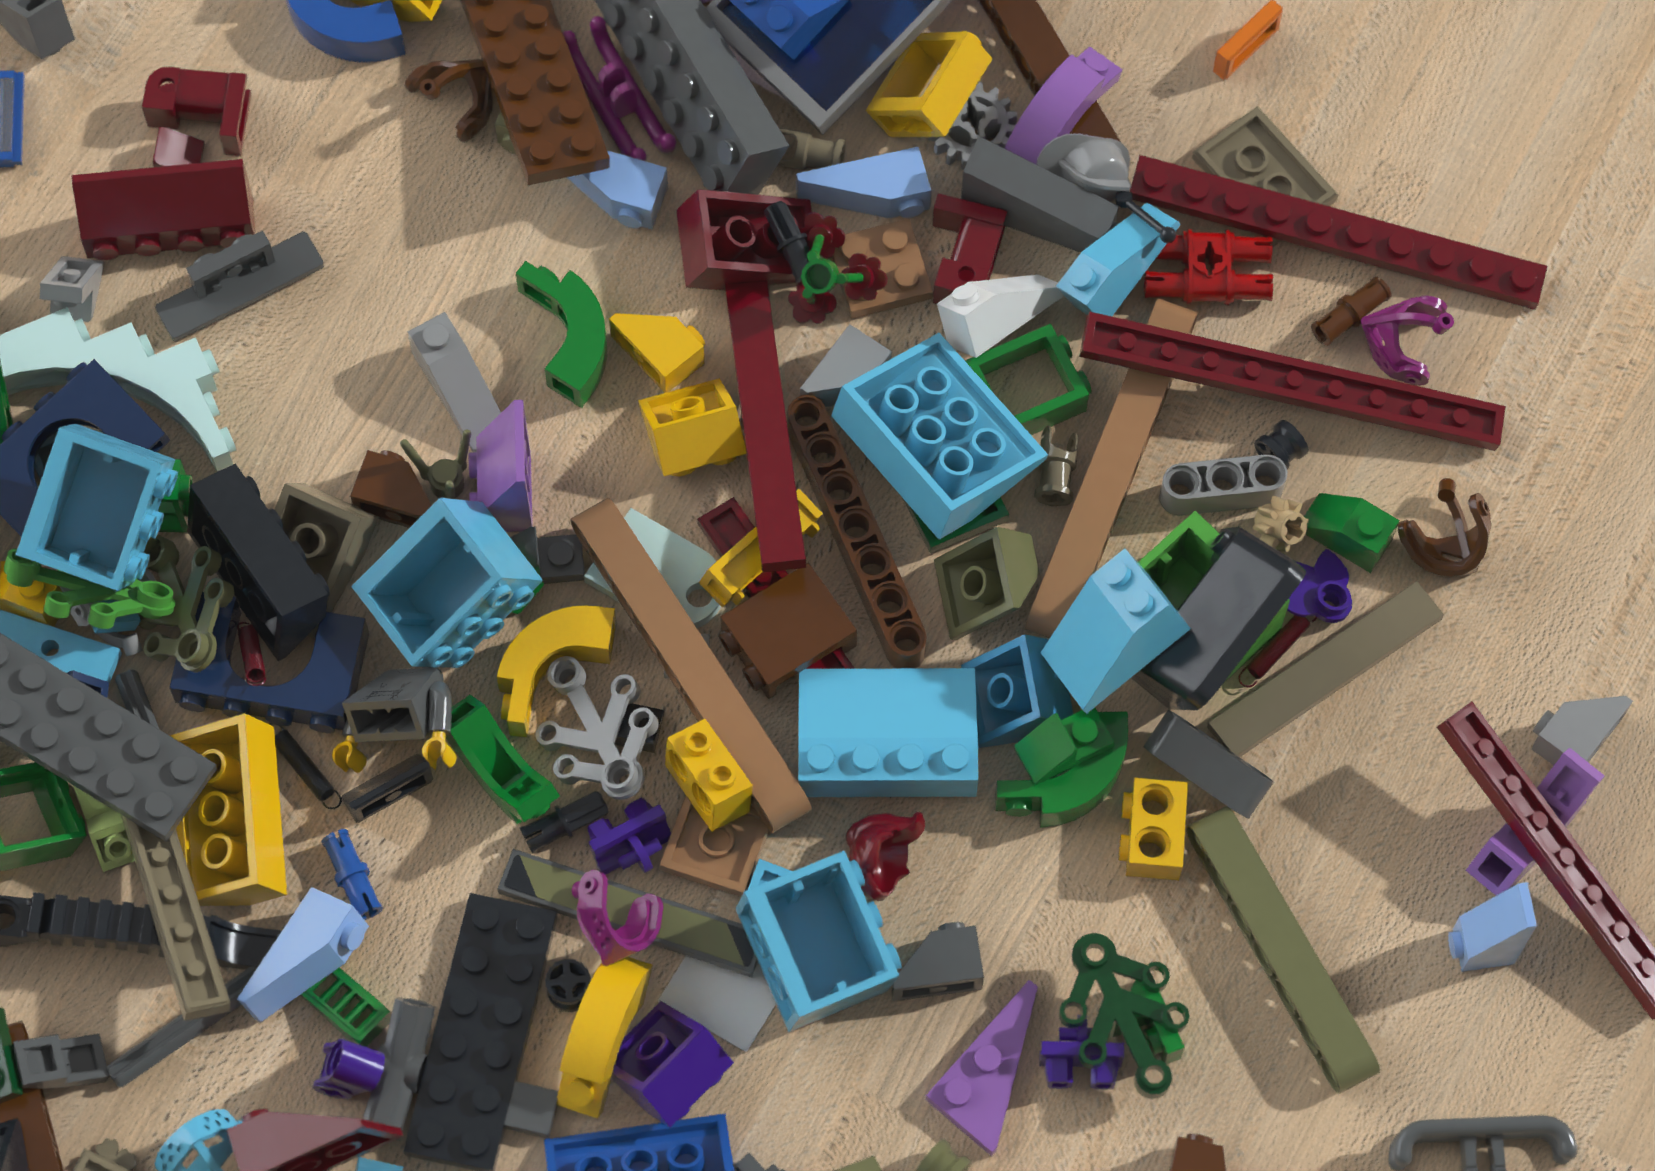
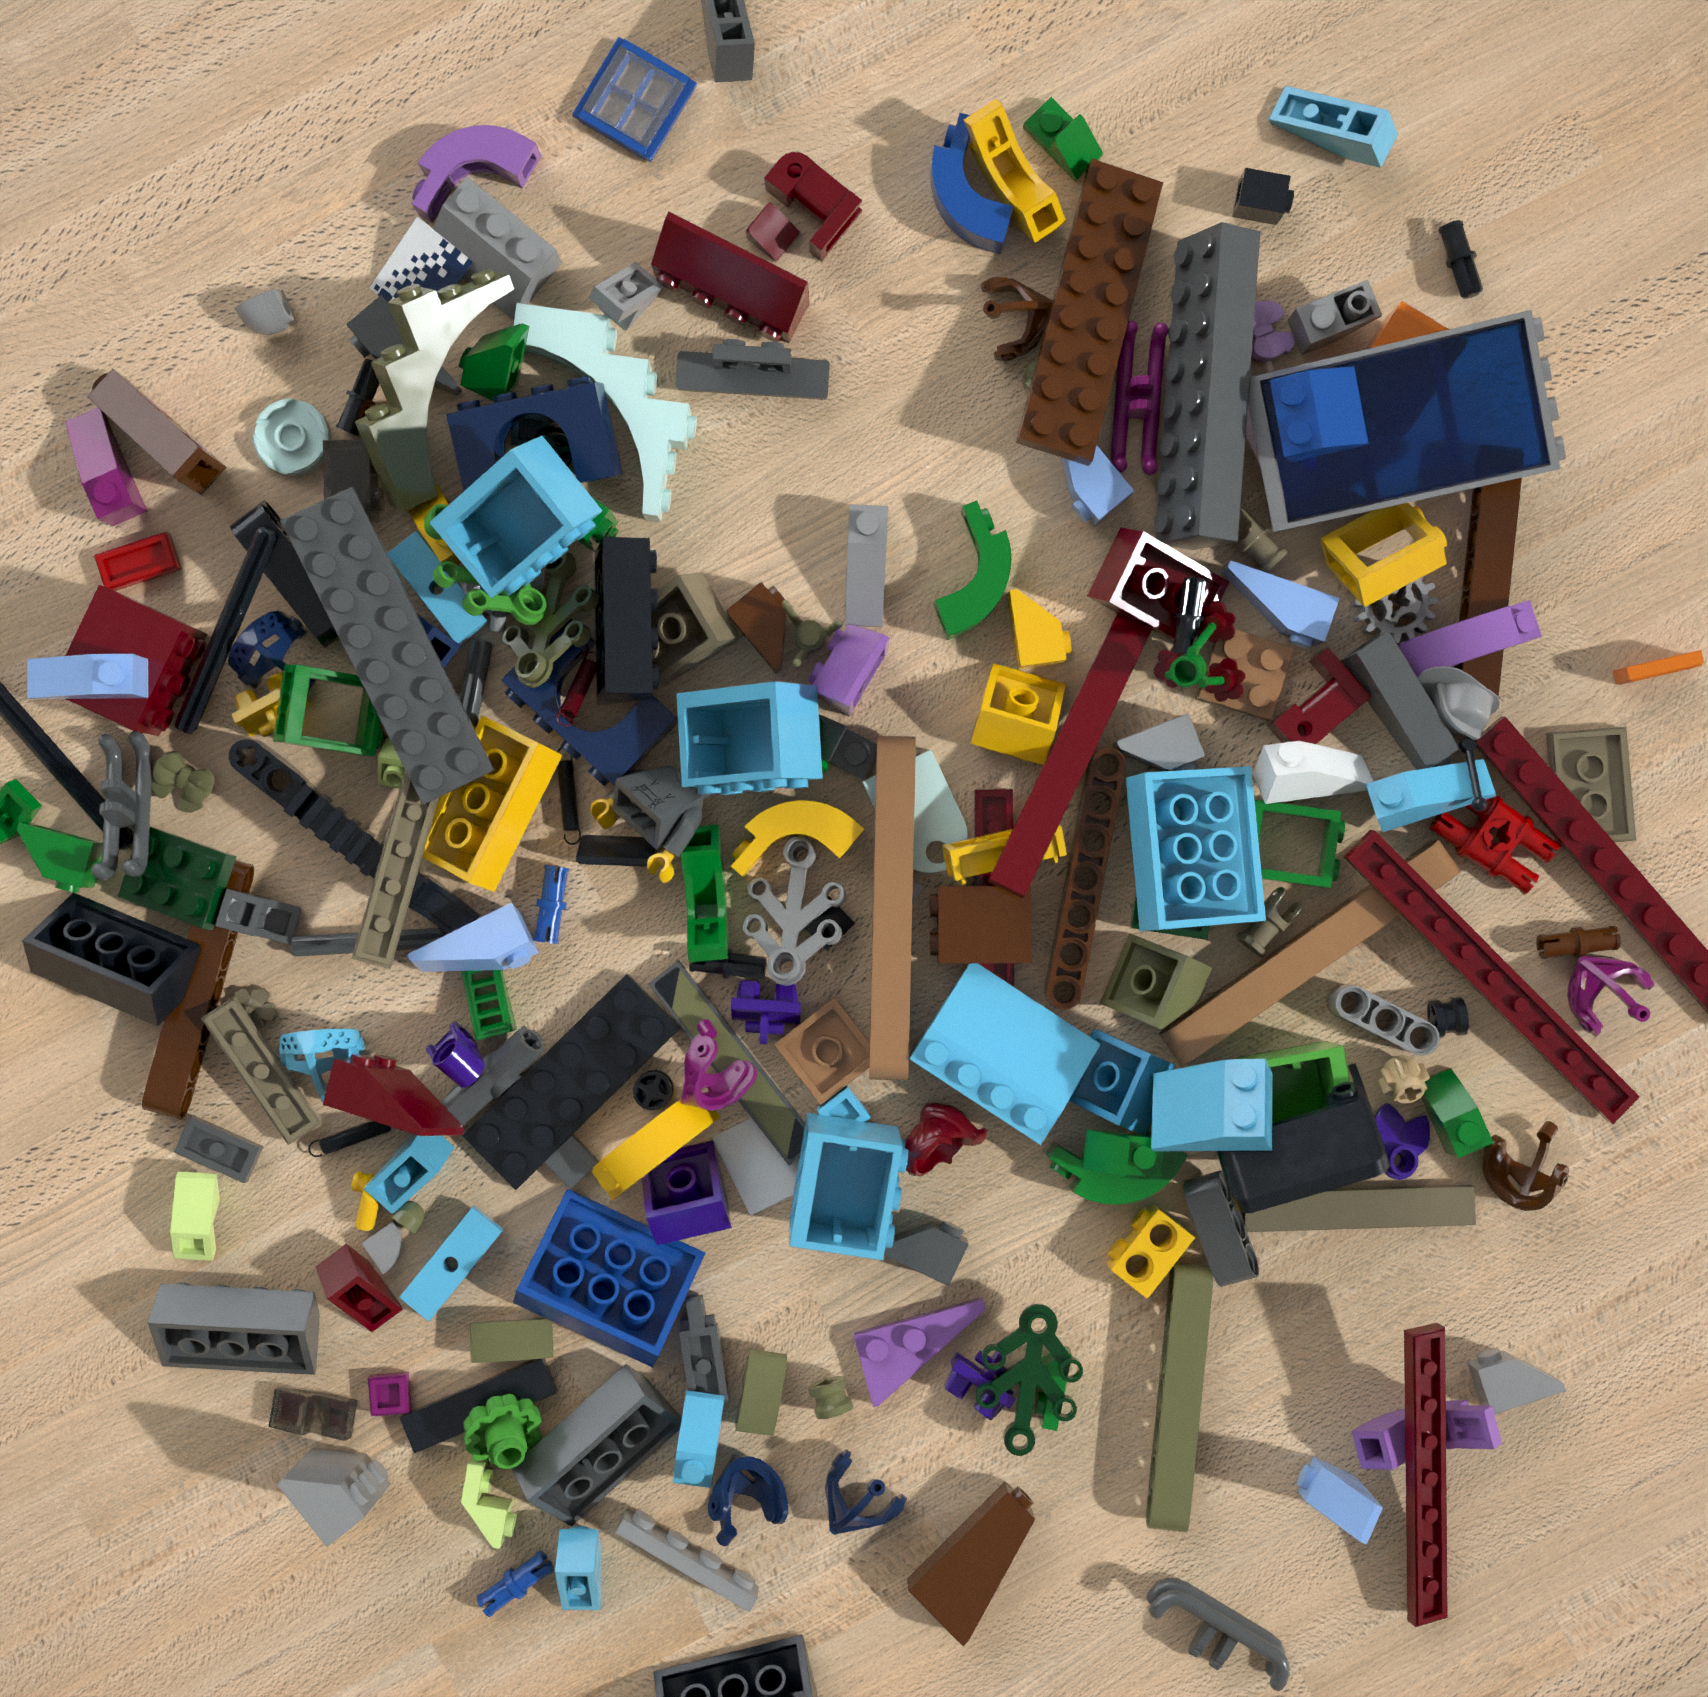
camera: 35 degrees right, 20 degrees up
(708, 775) = (849, 1006): yellow brick -> none

